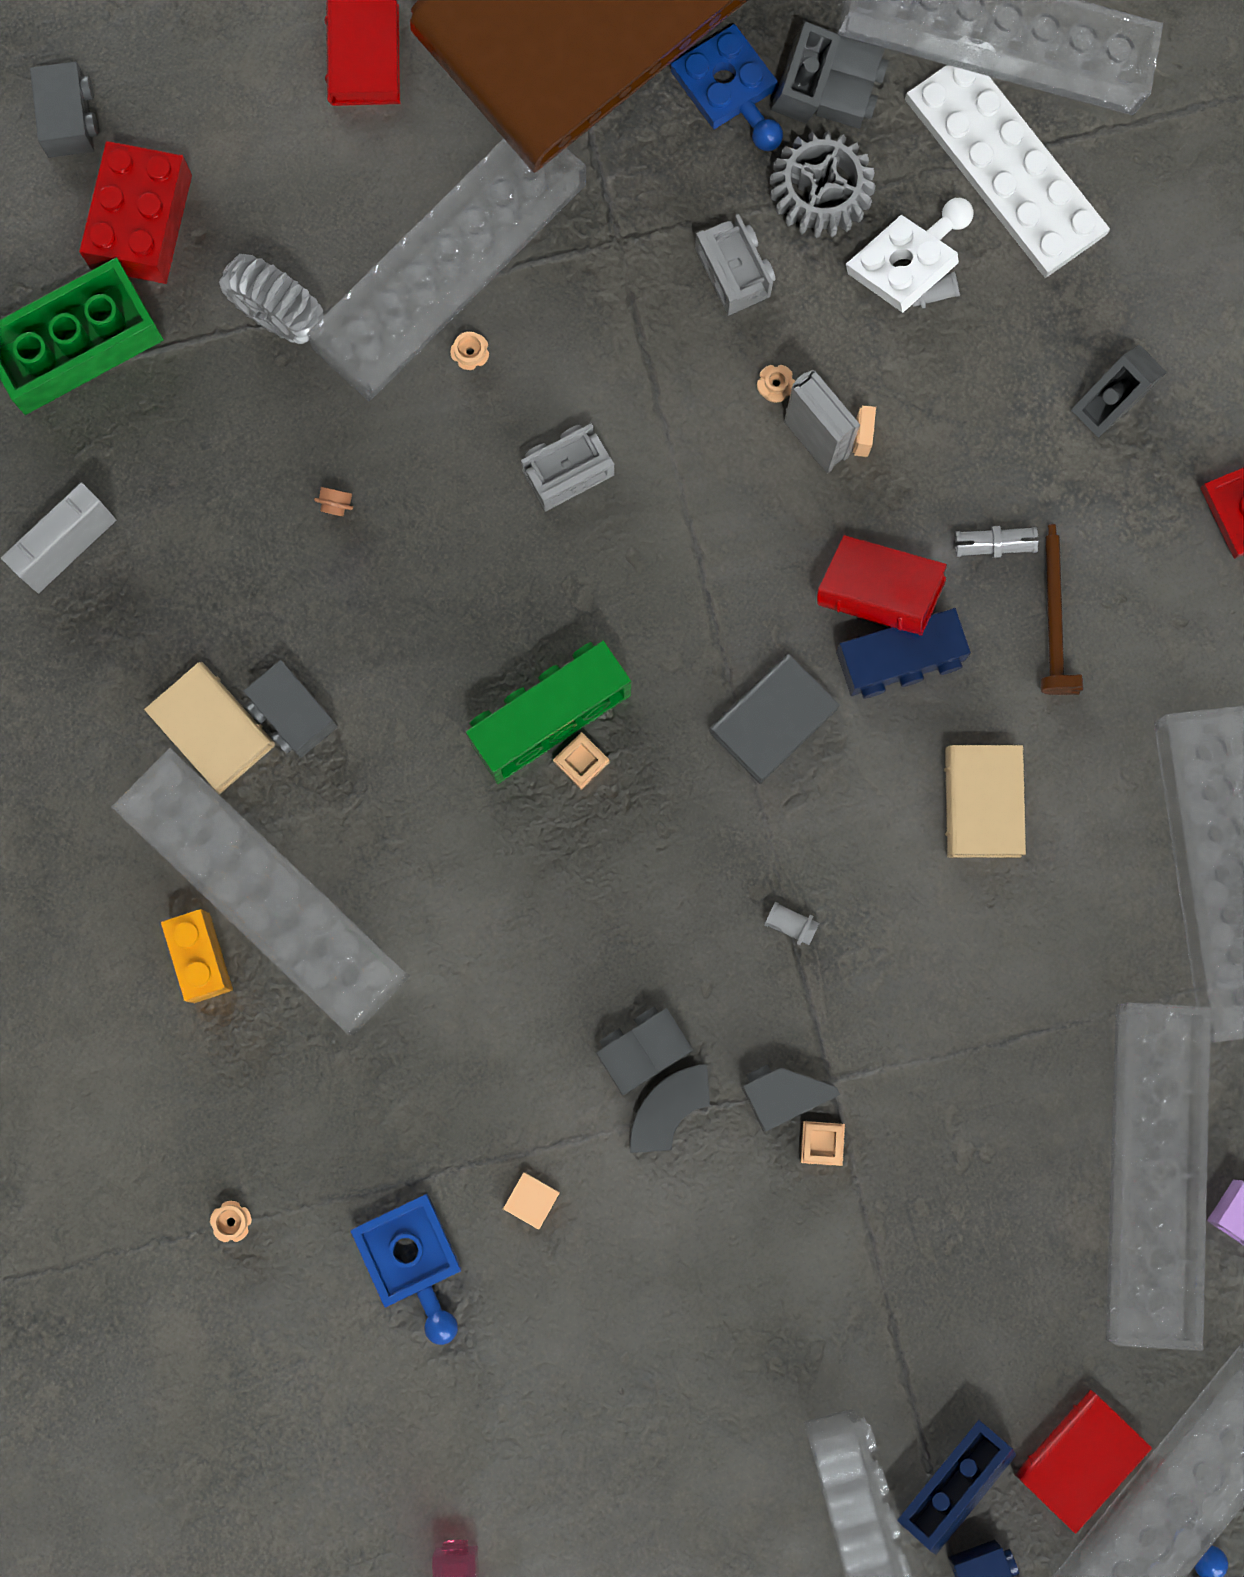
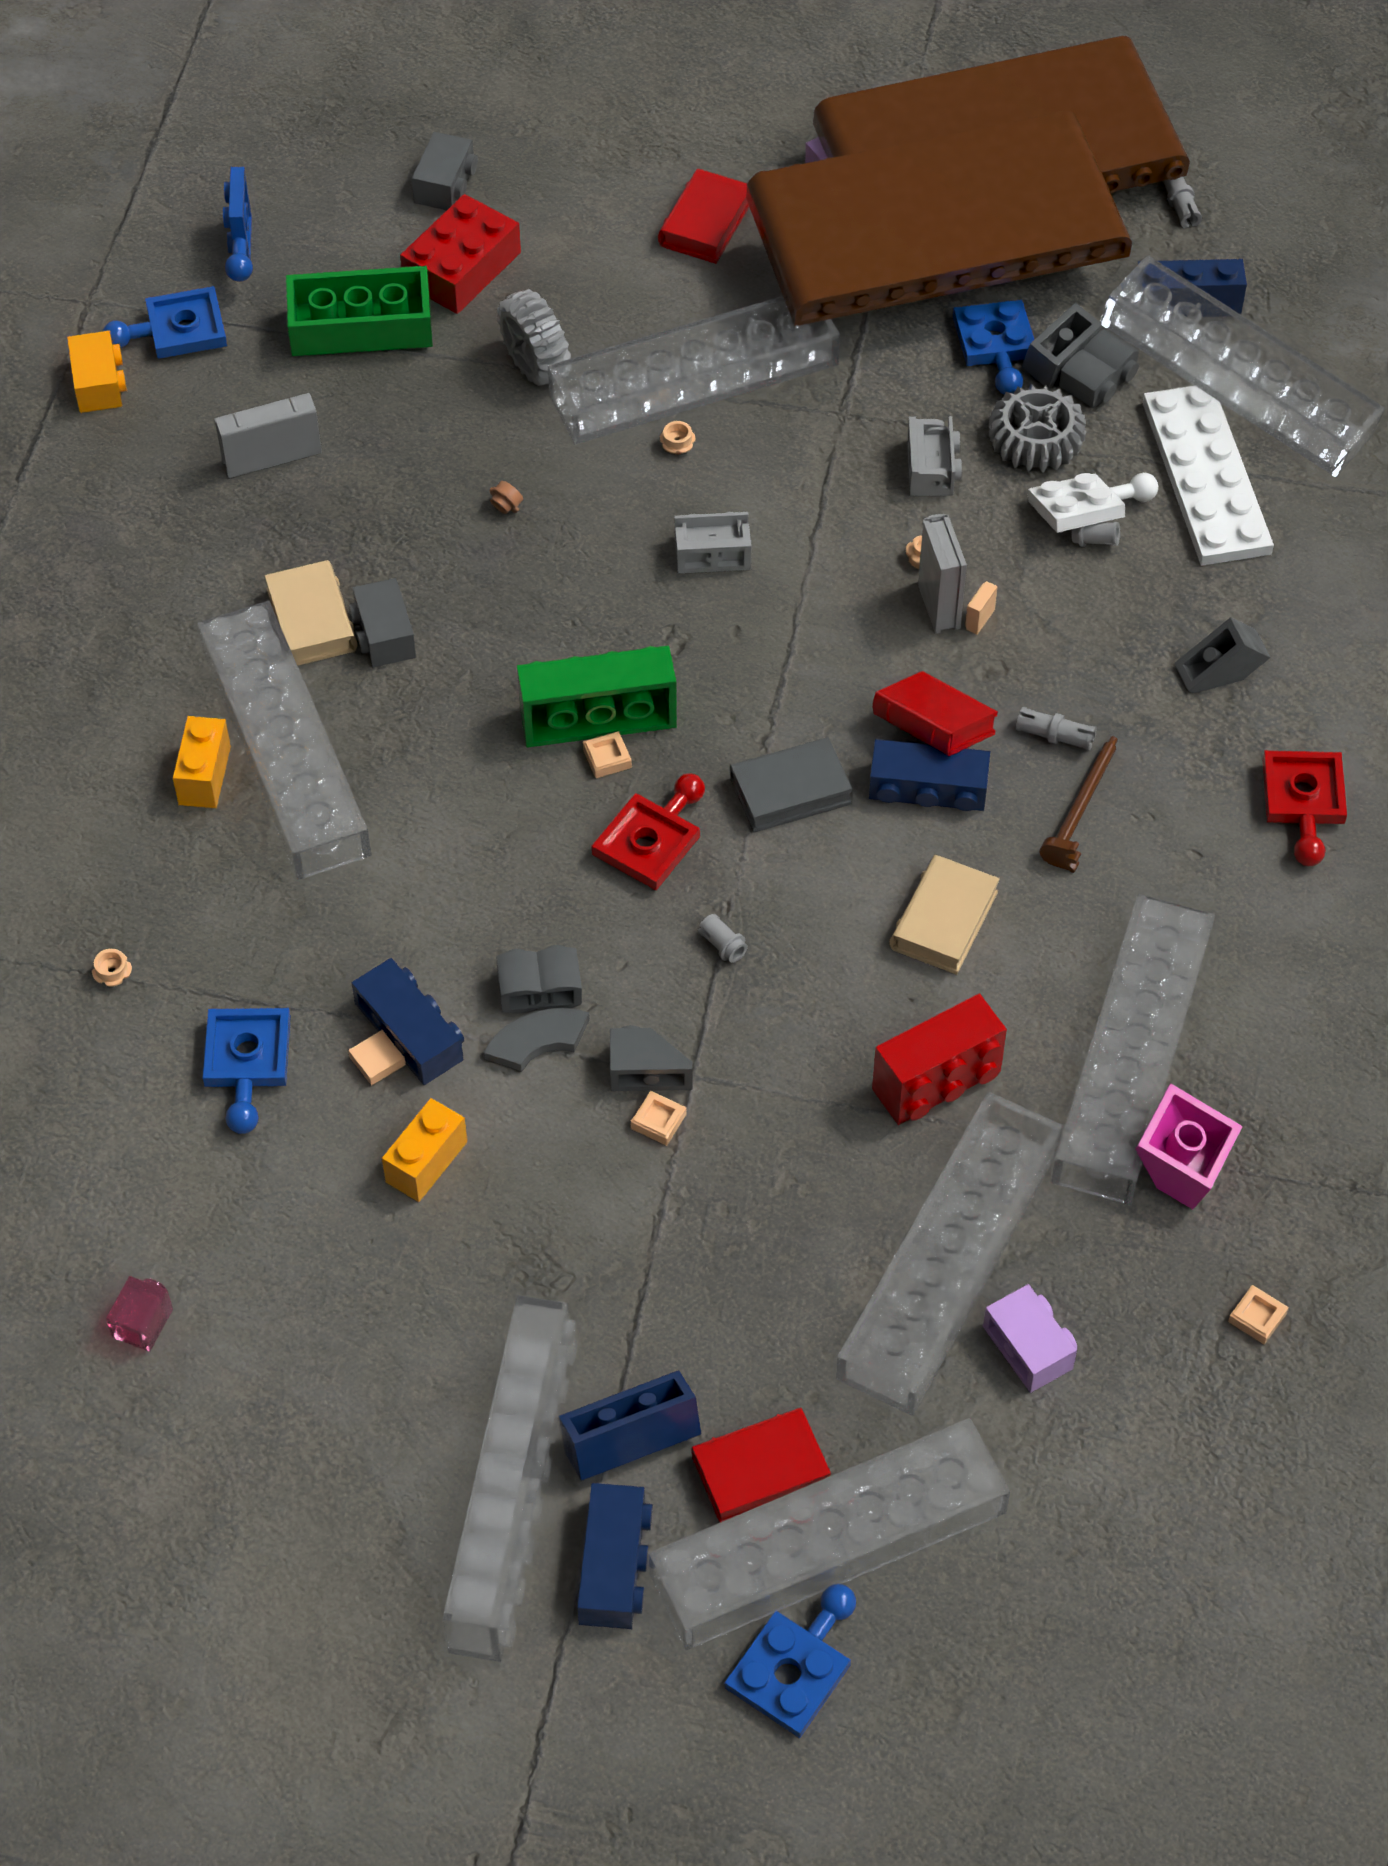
camera: 25 degrees right, 25 degrees down
(544, 1152) = (409, 1019): none -> dark blue brick
(631, 1288) = (424, 1149): none -> light orange brick
(688, 827) = (643, 819): none -> red plate
(1063, 979) = (939, 1059): none -> red brick

